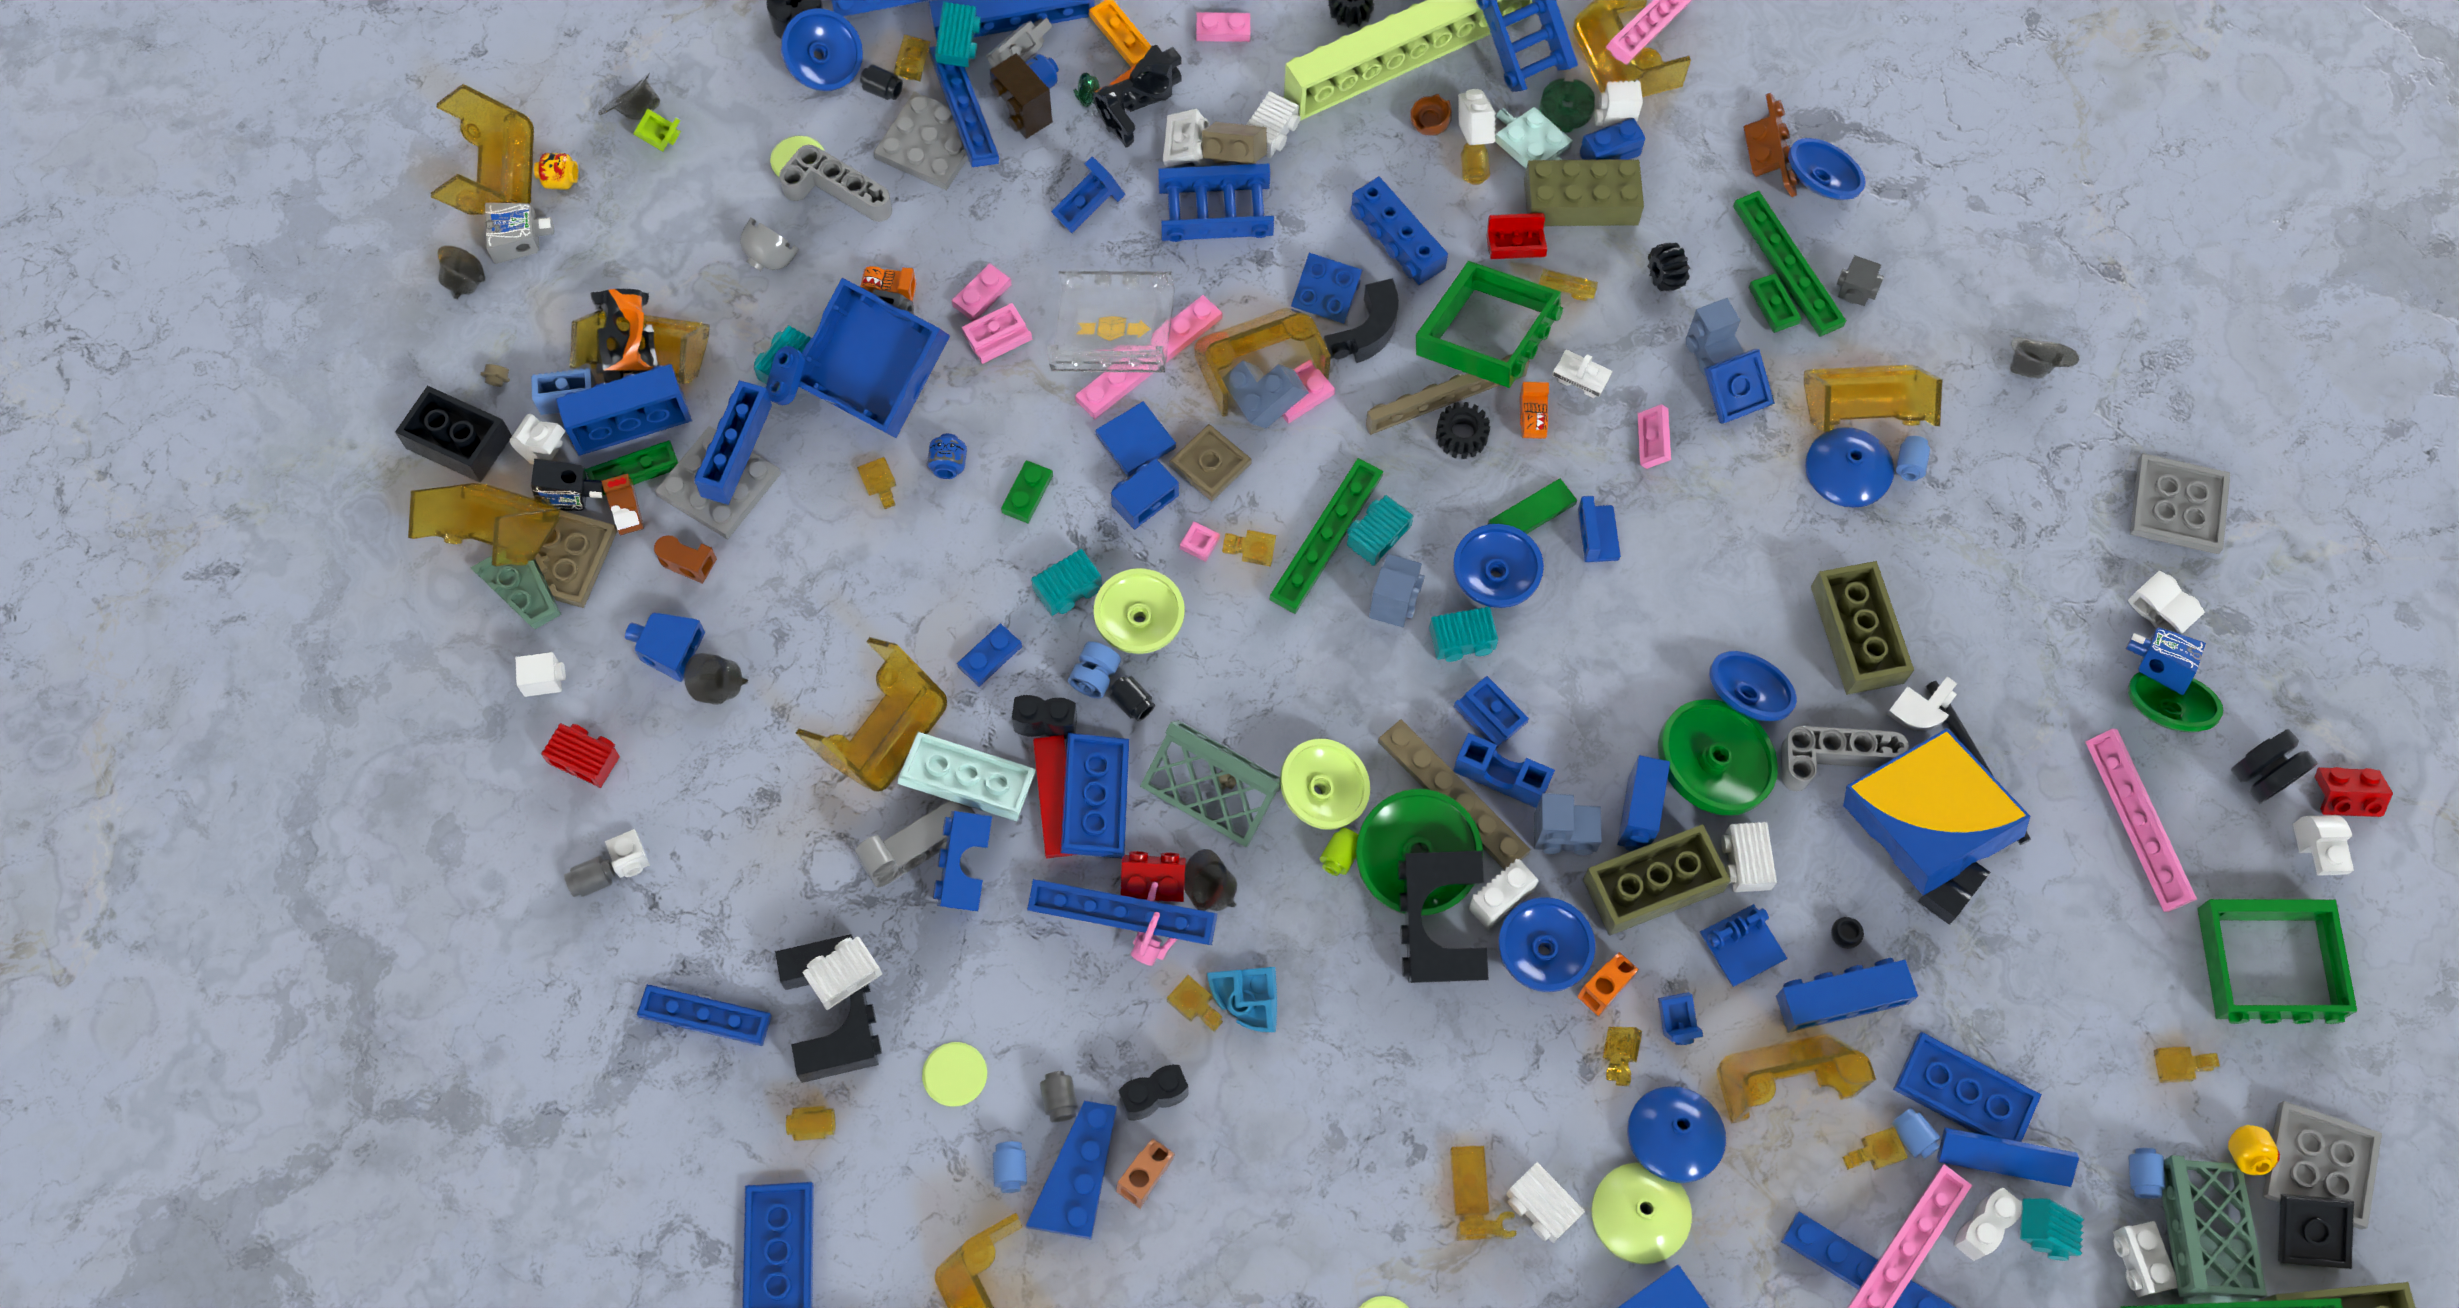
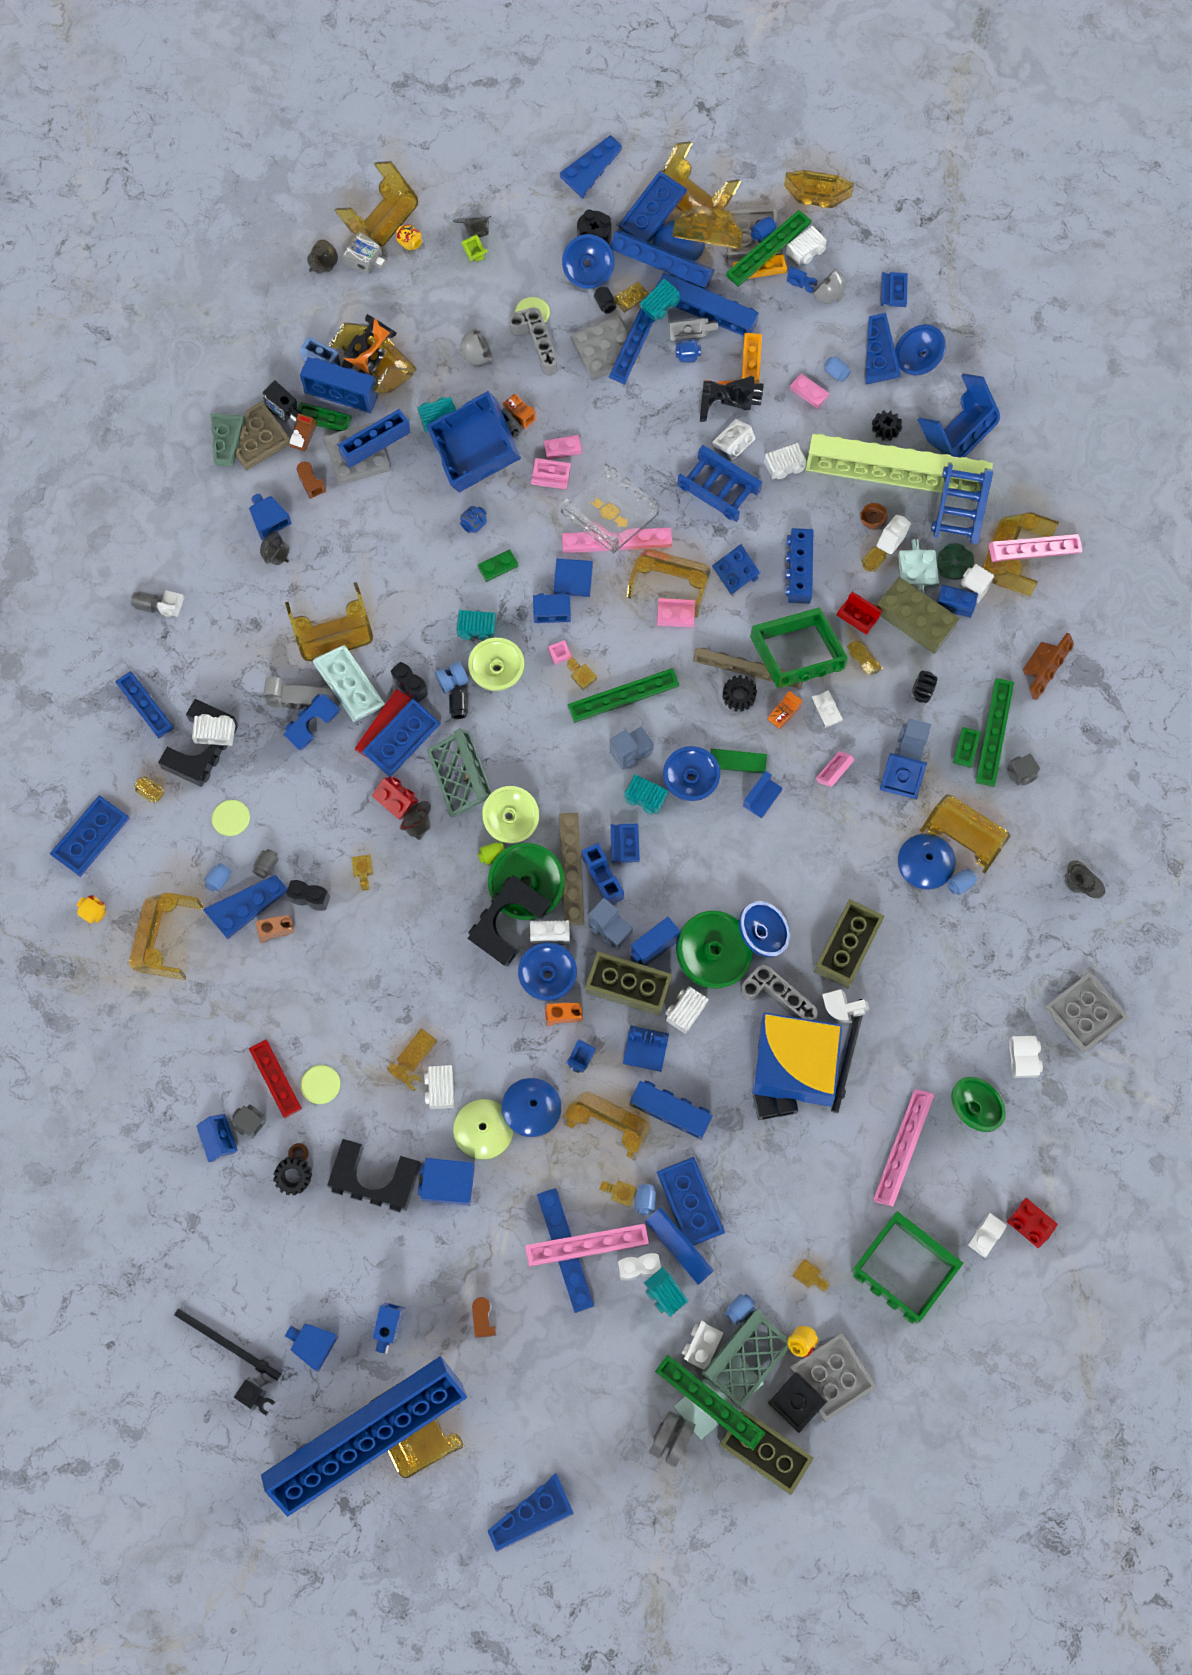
camera: 40 degrees right, 5 degrees up
(453, 434) = (253, 340): black brick -> none
(485, 513) = (240, 396): clear yellow windscreen -> none
(495, 375) = (297, 324): dark tan plate -> none
(537, 439) = (287, 371): white brick -> none
(539, 674) = (198, 488): white brick -> none
(580, 754) = (186, 540): red brick -> none
(785, 375) = (426, 422): blue plate -> none
(878, 479) = (431, 506): clear yellow plate -> none
(989, 654) = (411, 633): blue plate -> none
(1024, 95) = (666, 357): dark brown brick -> none
(1086, 86) = (706, 375): clear green hat -> none
(1087, 196) = (656, 434): blue bracket -> none
(1121, 911) = (364, 801): blue plate -> none
(1147, 945) = (364, 826): bright pink plant -> none
(1210, 462) = (598, 616): dark tan plate -> none
(1234, 143) = (754, 458): dark tan brick -> none
(1247, 996) = (390, 886): dark azure brick -> none
(1264, 397) = (652, 600): sand blue brick -> none
(1375, 332) = (741, 609): black arch -> none
(1379, 529) = (651, 711): teal brick -> none
(1621, 1048) = (539, 1048): clear yellow plate -> none
(1826, 169) = (1060, 696): blue dish -> none
(1847, 932) = (702, 1083): black plate -> none
(2168, 657) = (997, 1082): blue torso -> none
(2271, 762) = (996, 1176): black wheel -> none

